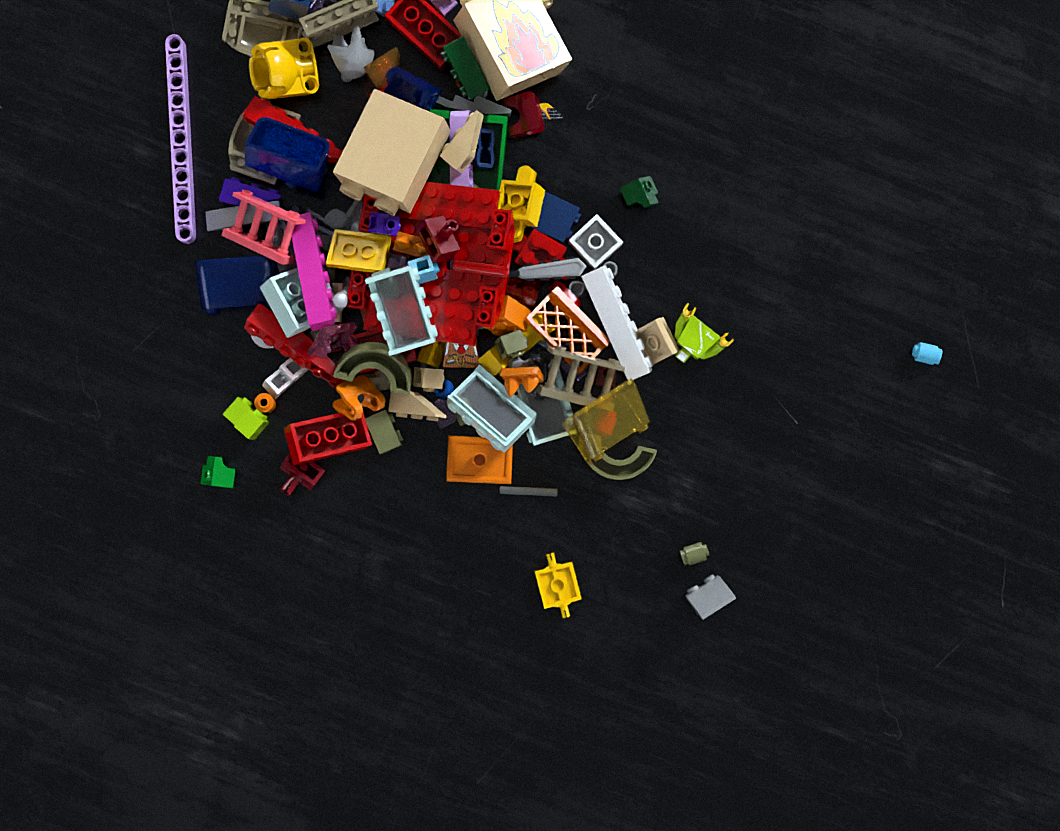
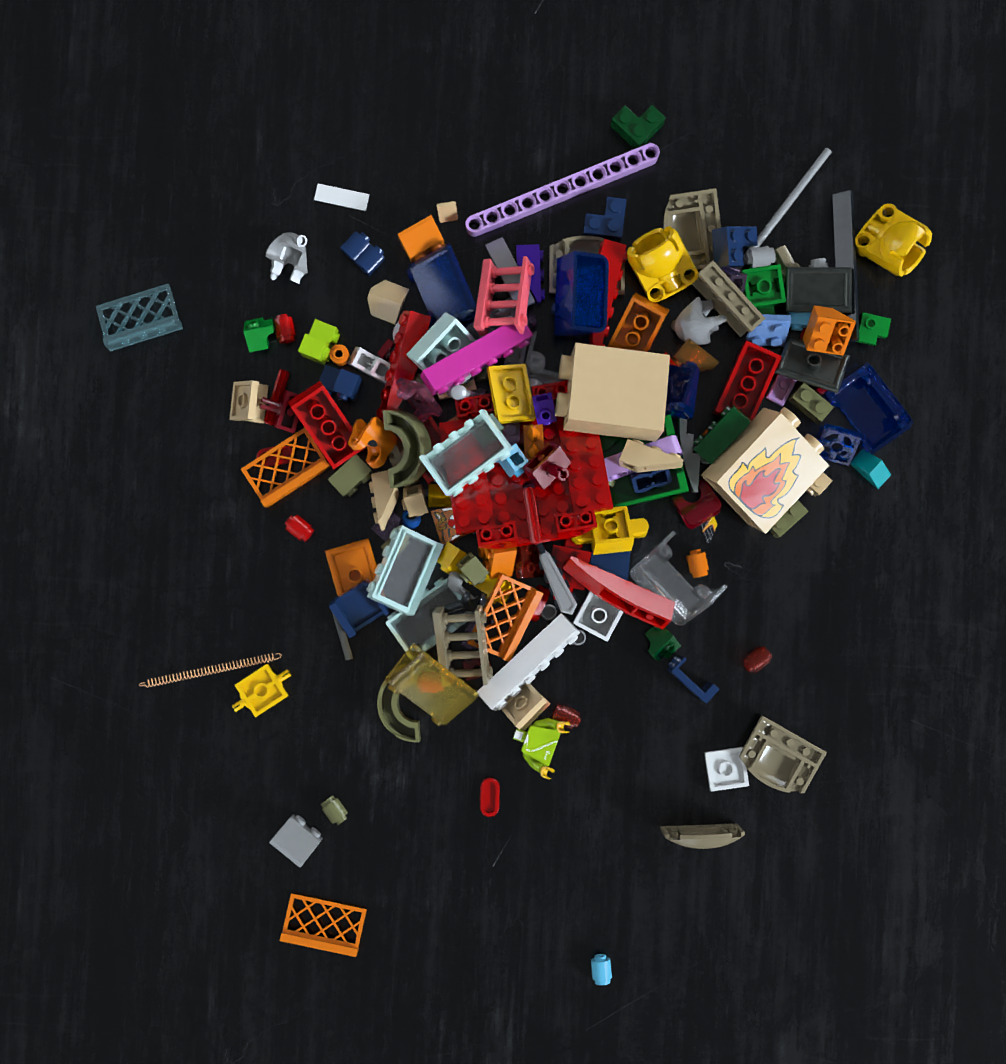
camera: 75 degrees right, 0 degrees up
(113, 351) = (341, 197): none -> white sticker
(147, 50) = (637, 130): none -> dark green brick
(147, 416) = (288, 249): none -> light grey piece
(163, 255) = (447, 211): none -> tan slope
(175, 348) = (362, 252): none -> dark blue brick
(178, 584) = (146, 330): none -> clear light blue fence
(181, 288) = (421, 239): none -> orange slope
(221, 447) = (284, 328): none -> red brick
(228, 341) = (387, 301): none -> tan slope
(229, 104) = (607, 225): none -> dark blue brick
(275, 356) = (386, 350): none -> dark red tile
(279, 507) = (246, 401): none -> tan bracket
(280, 475) = (278, 389): none -> red axle
(292, 410) = (341, 383): none -> dark blue brick
(334, 110) = (639, 324): none -> orange slope
(340, 498) = (271, 460): none -> red tile
(370, 485) = (295, 481): none -> orange fence
(416, 497) = (299, 527): none -> red brick
(512, 468) = (355, 609): none -> dark blue panel
(522, 626) = (209, 670): none -> light nougat piece
(525, 375) = (446, 596): orange tile -> none
(566, 33) = (791, 516): none -> olive brick
(578, 133) = (697, 563): none -> orange brick
(582, 212) = (622, 593): none -> slope
(592, 168) = (662, 578): none -> clear windscreen
(678, 303) = (567, 714): none -> clear red brick
(687, 109) = (757, 660): none -> clear red brick
(702, 170) = (703, 694): none -> dark blue panel
(731, 403) = (489, 796): none -> red tile
(779, 173) = (726, 769): none -> white plate
(785, 118) = (780, 757): none -> dark tan slope
(814, 607) = (319, 942): none -> orange fence
(834, 214) = (703, 835): none -> dark tan slope

